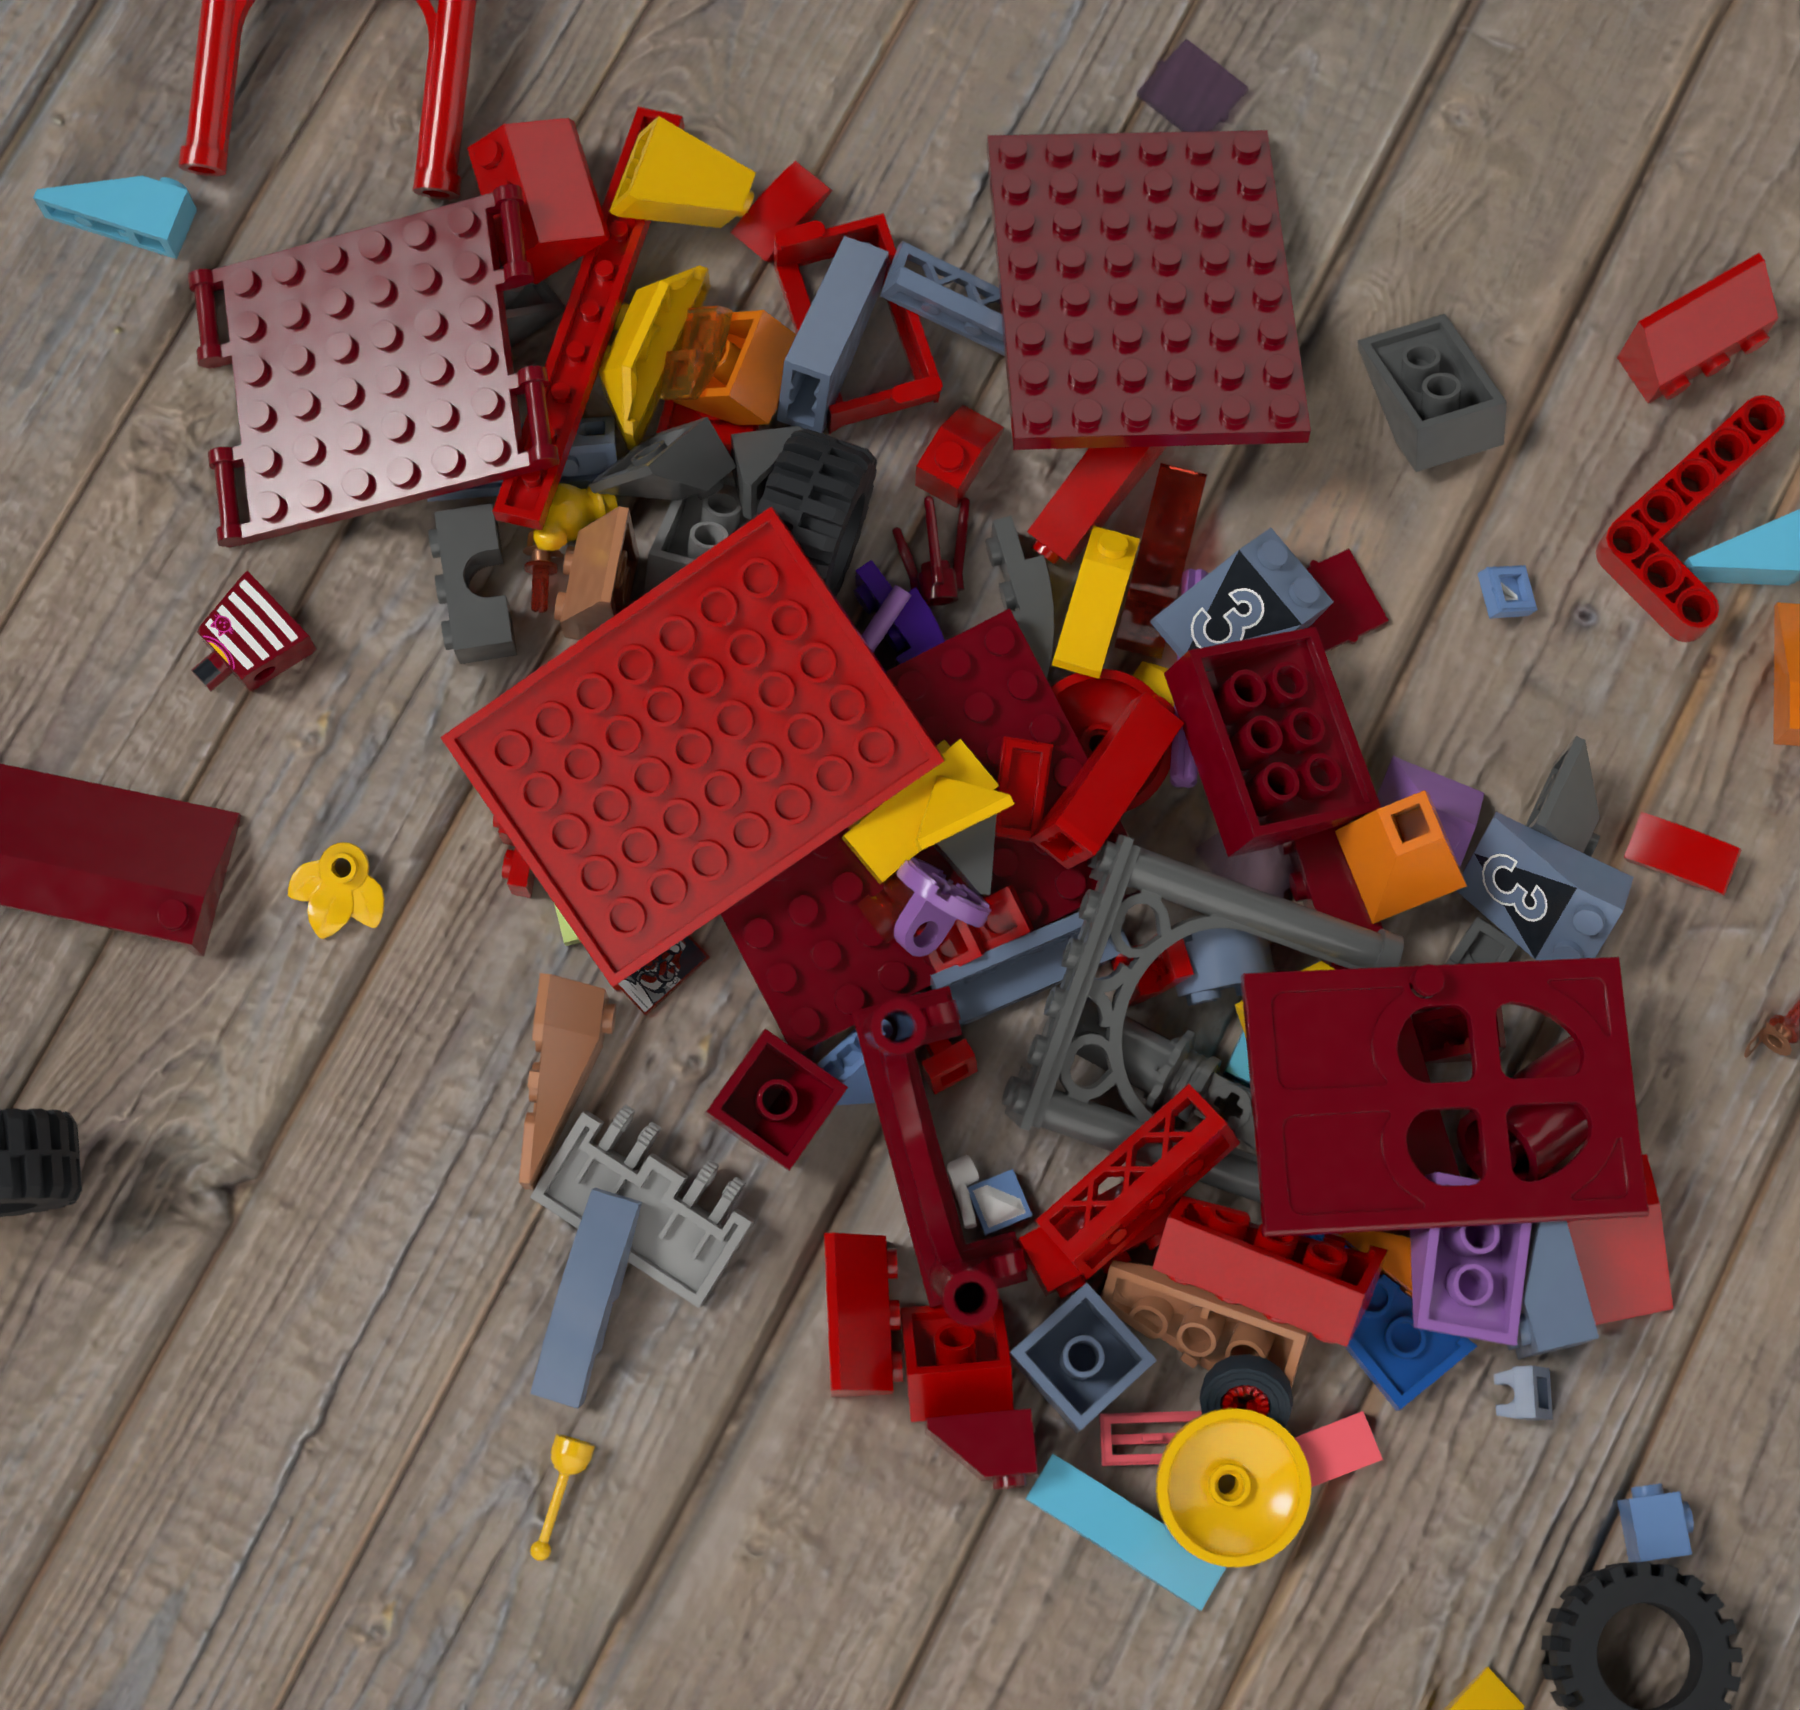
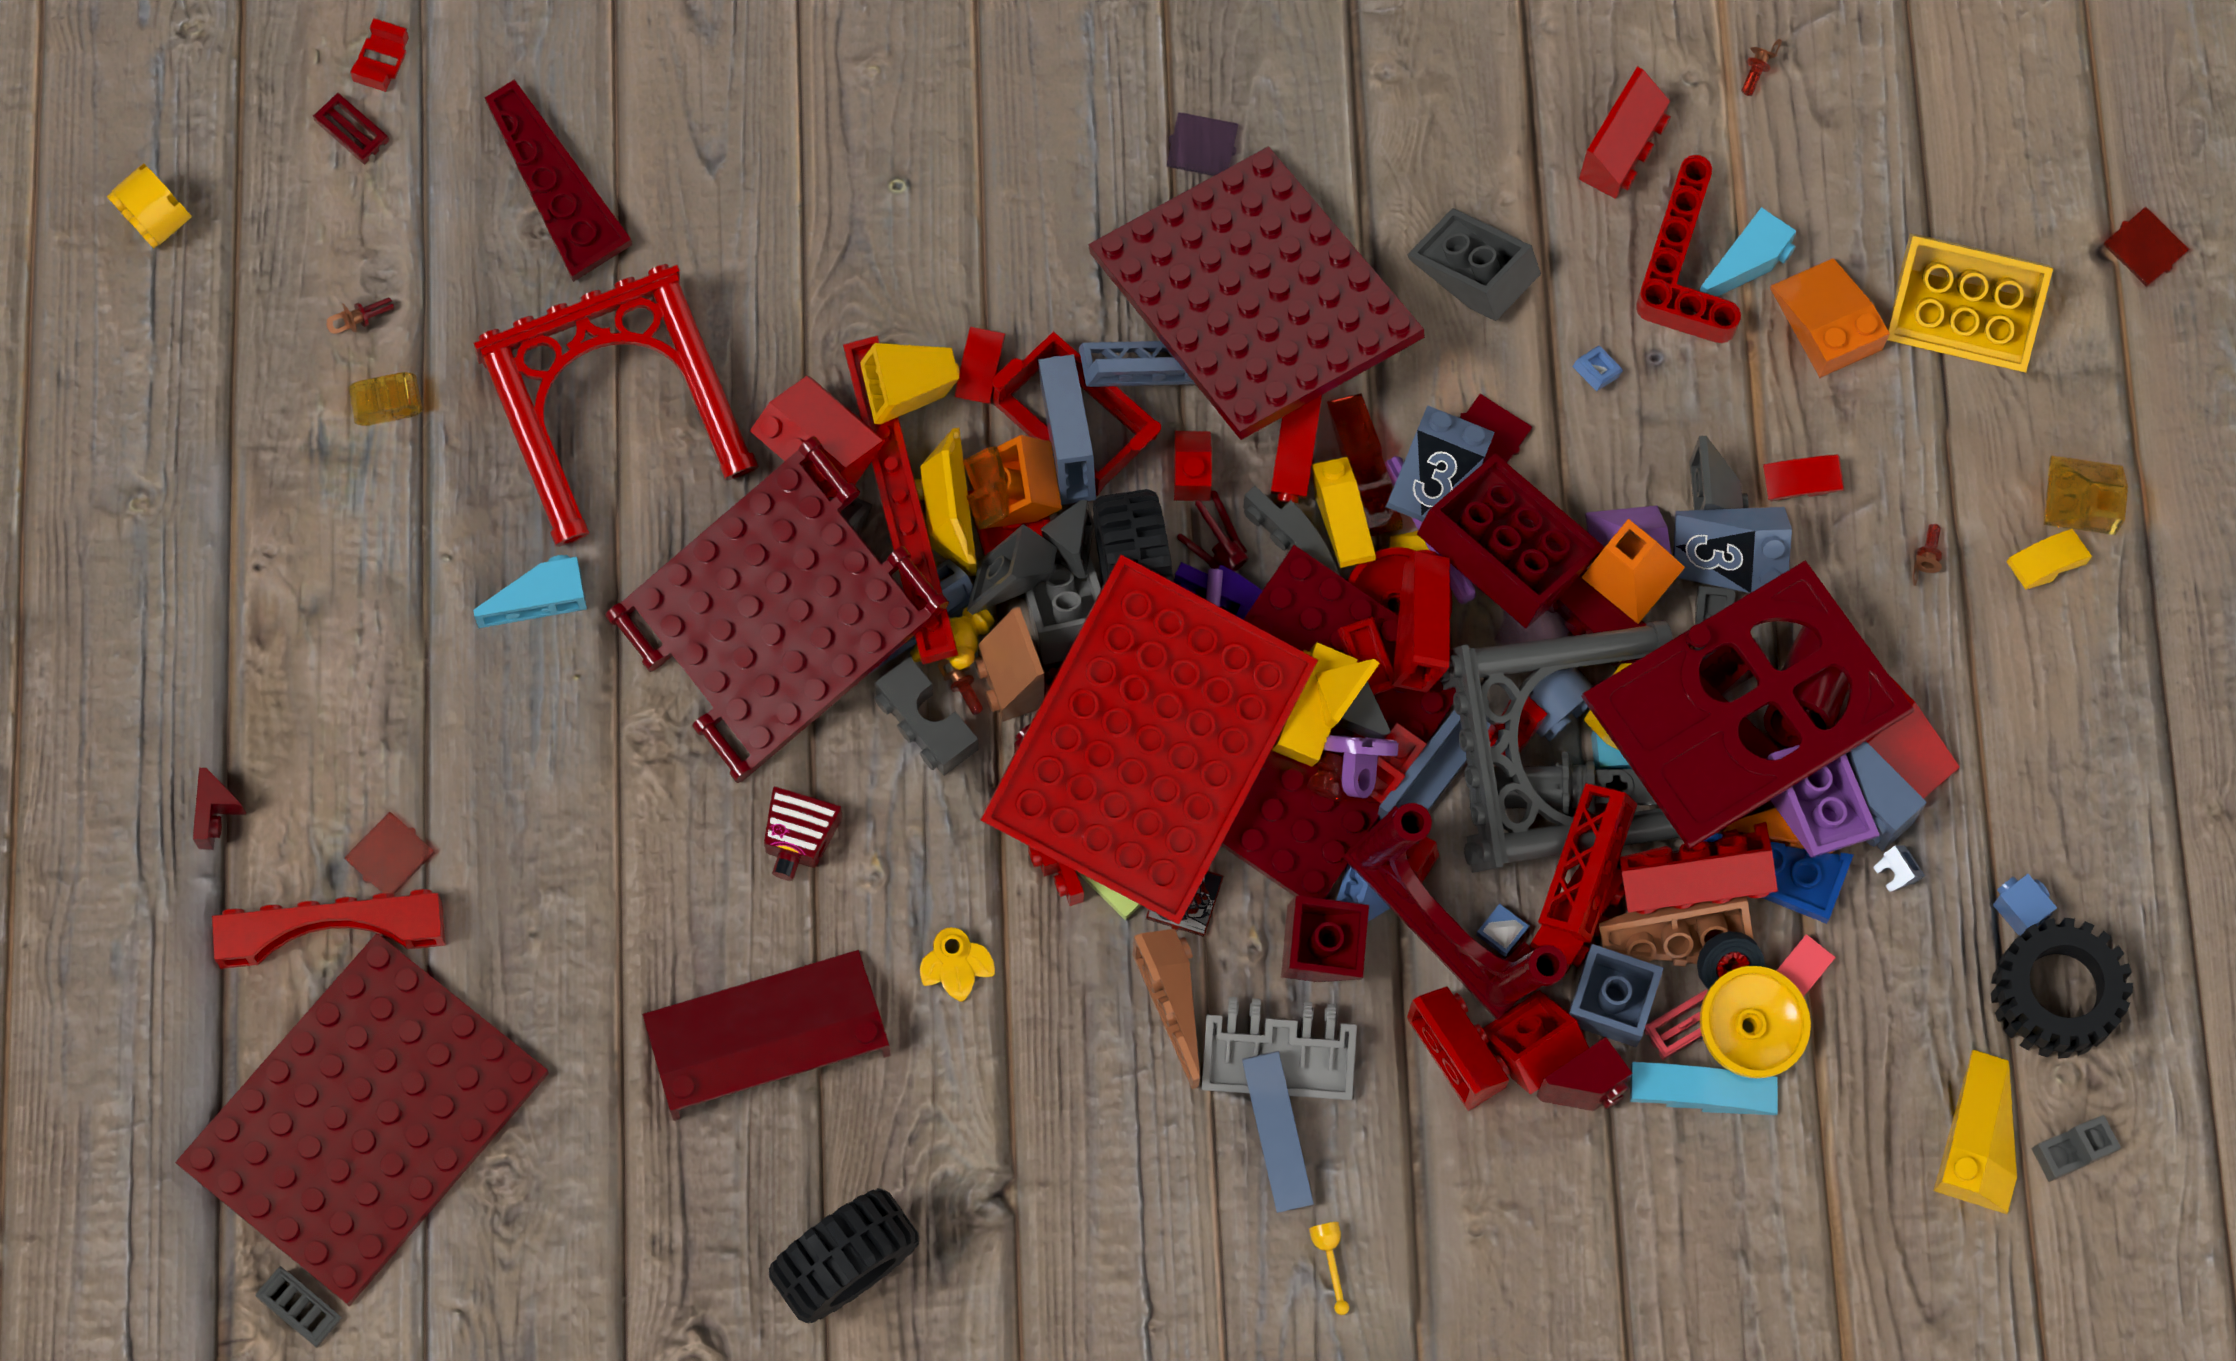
camera: 30 degrees left, 5 degrees down
(961, 1174) = (1470, 923): white hand -> none

